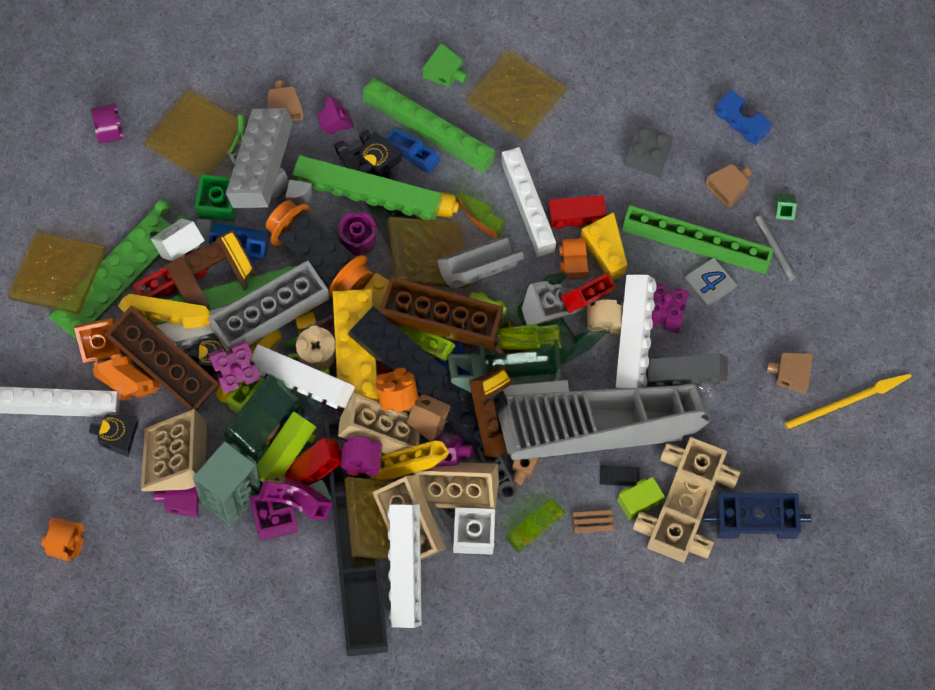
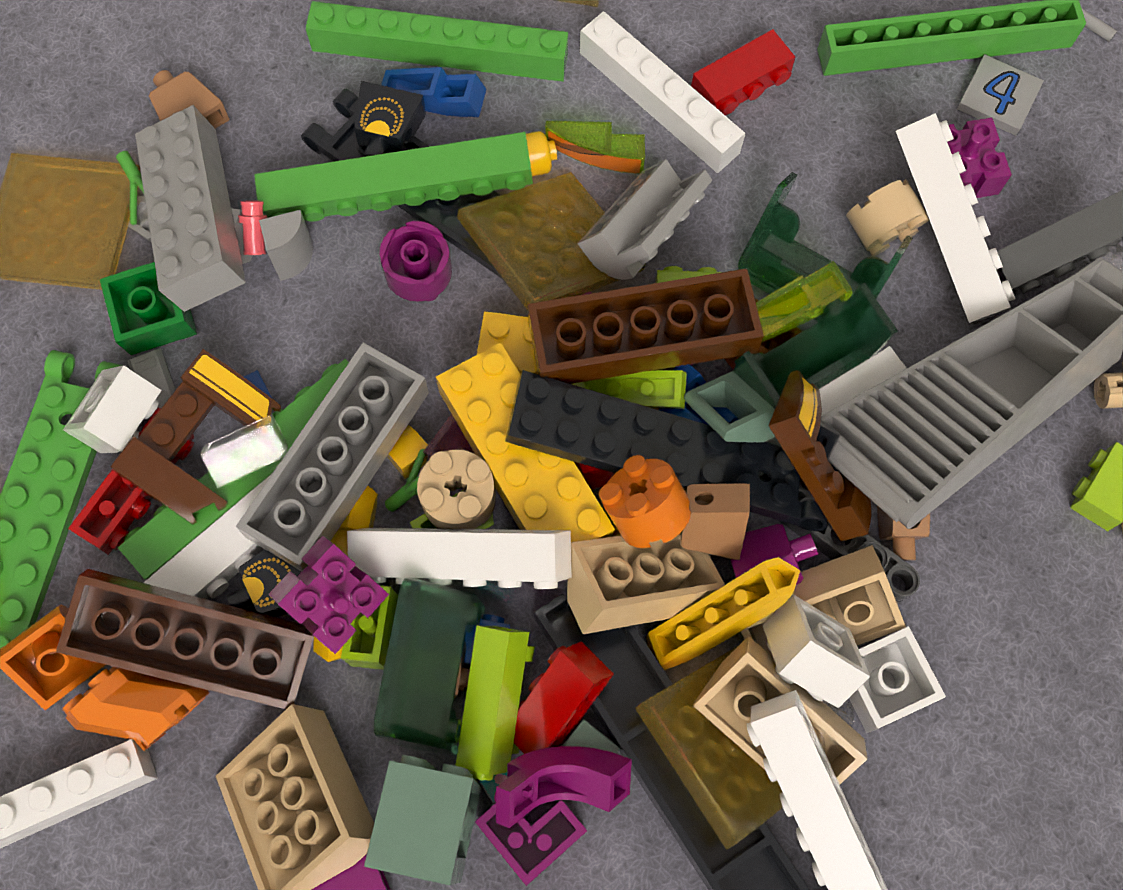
camera: 25 degrees left, 5 degrees up
(116, 432) = (167, 813): black torso -> none
(169, 311) = (167, 543): yellow brick -> none
(229, 285) = (244, 450): none -> clear brick
(253, 241) = (245, 351): blue arch -> none
(287, 175) = (252, 234): none -> coral pin
(312, 243) = (354, 310): brick -> none
(334, 117) = (279, 92): magenta brick -> none
(361, 456) = (642, 650): magenta brick -> none
(440, 495) = (815, 652): none -> white brick
(535, 525) = (974, 618): clear neon green slope -> none
(545, 303) = (798, 233): light grey wedge -> none
(574, 258) = (780, 147): orange brick -> none
(588, 292) = (844, 189): red brick -> none
(605, 246) = (820, 108): yellow wedge -> none
(609, 513) = (1080, 547): medium nougat tile -> none
(619, 475) = (1049, 464): black tile -> none

